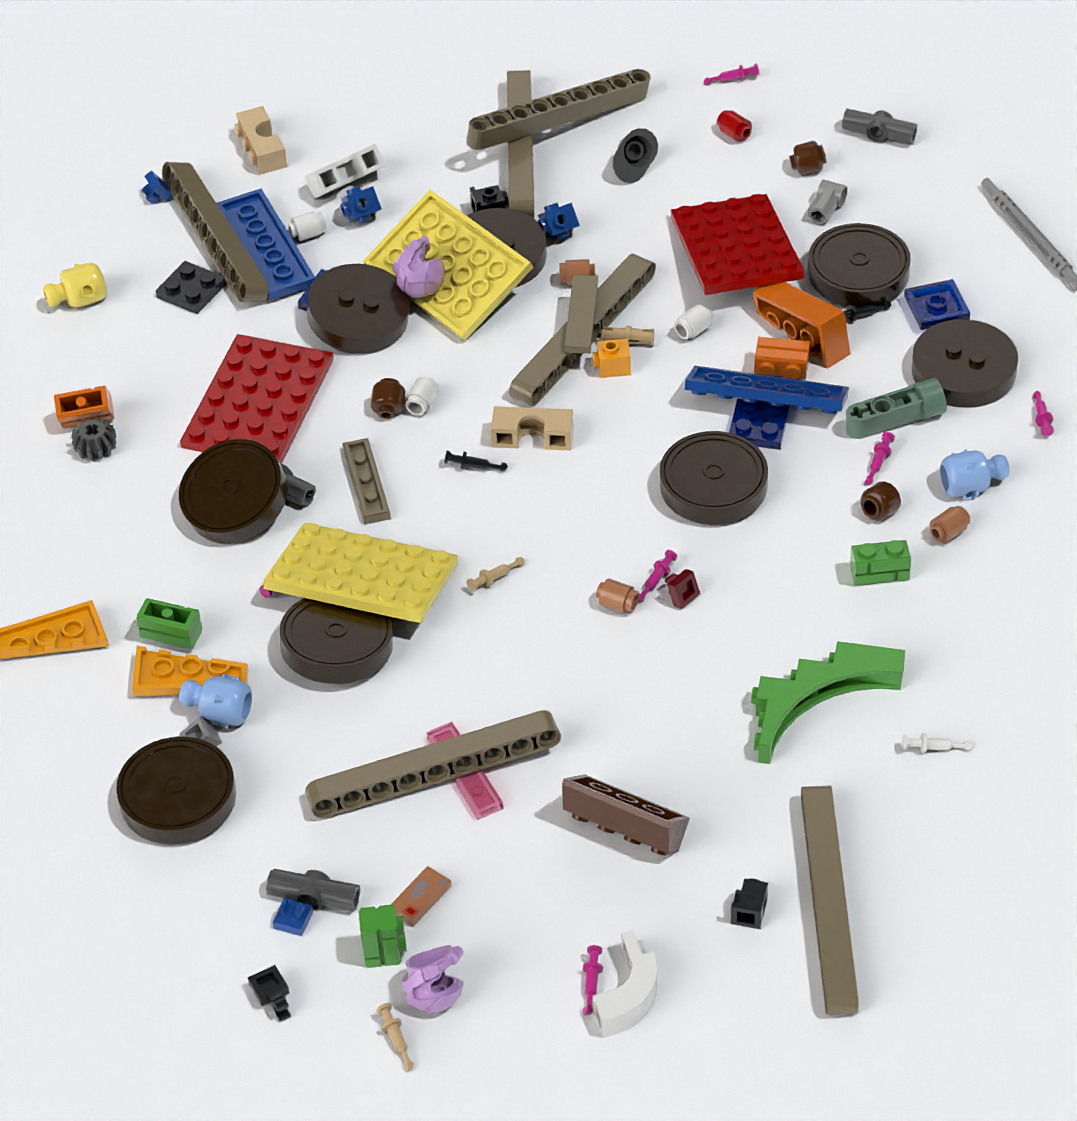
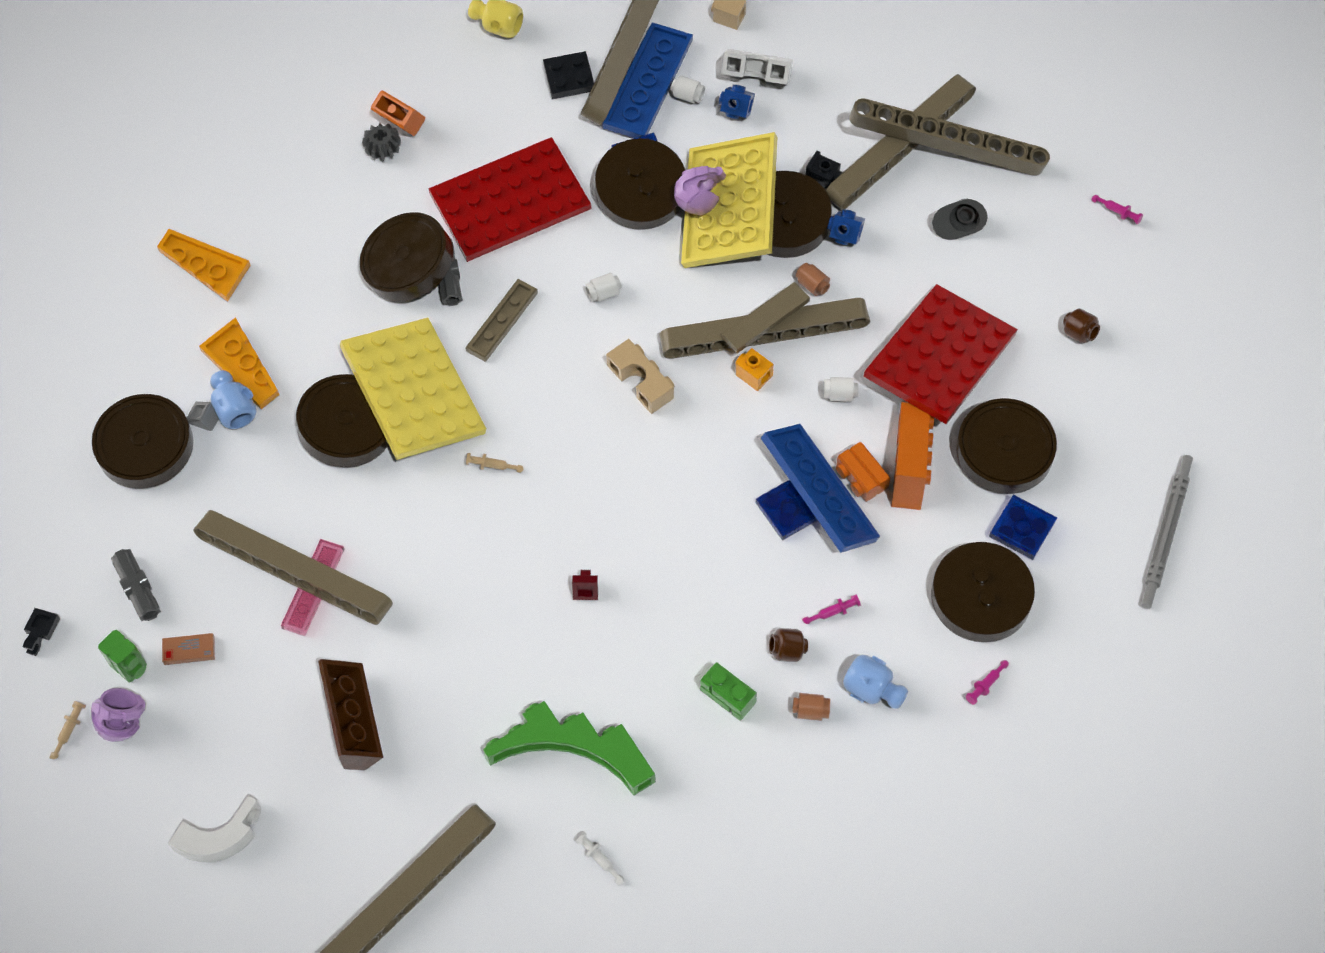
camera: 45 degrees right, 15 degrees up
(169, 623) = (266, 319): bright green brick -> none
(293, 917) = (109, 591): blue tile -> none
(387, 398) = (580, 270): reddish brown head -> none
(473, 462) = (573, 360): black piece -> none
(592, 970) = (212, 803): dark pink piece -> none
(617, 595) = (541, 553): nougat brick -> none
(634, 335) = (788, 360): tan pin -> none
(660, 568) = (585, 560): dark pink piece -> none
(713, 477) = (704, 522): dark brown brick -> none
(734, 125) = (1064, 253): red brick -> none
(750, 904) = (352, 852): black brick -> none
(828, 198) = (1058, 370): light grey piece -> none
(853, 312) = (965, 483): black piece -> none
(879, 126) = (1167, 343): dark grey piece -> none
(896, 409) = (912, 594): sand green beam -> none

